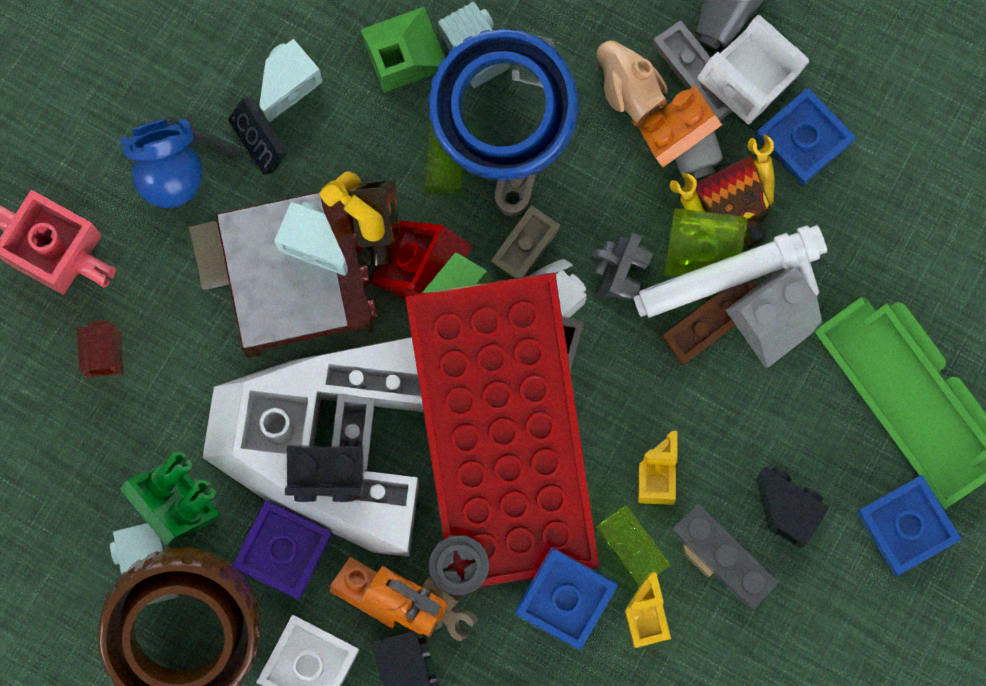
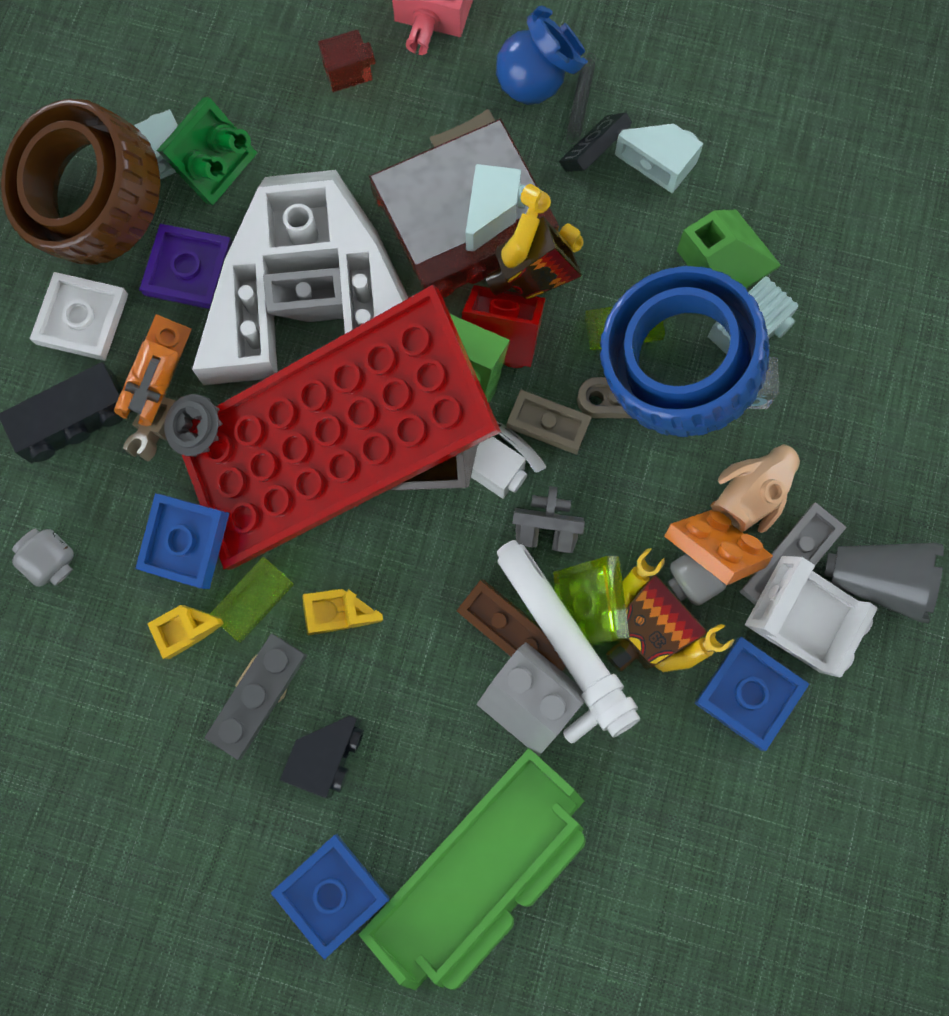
camera: 80 degrees right, 0 degrees up
(325, 472) = (250, 269): black bracket -> none

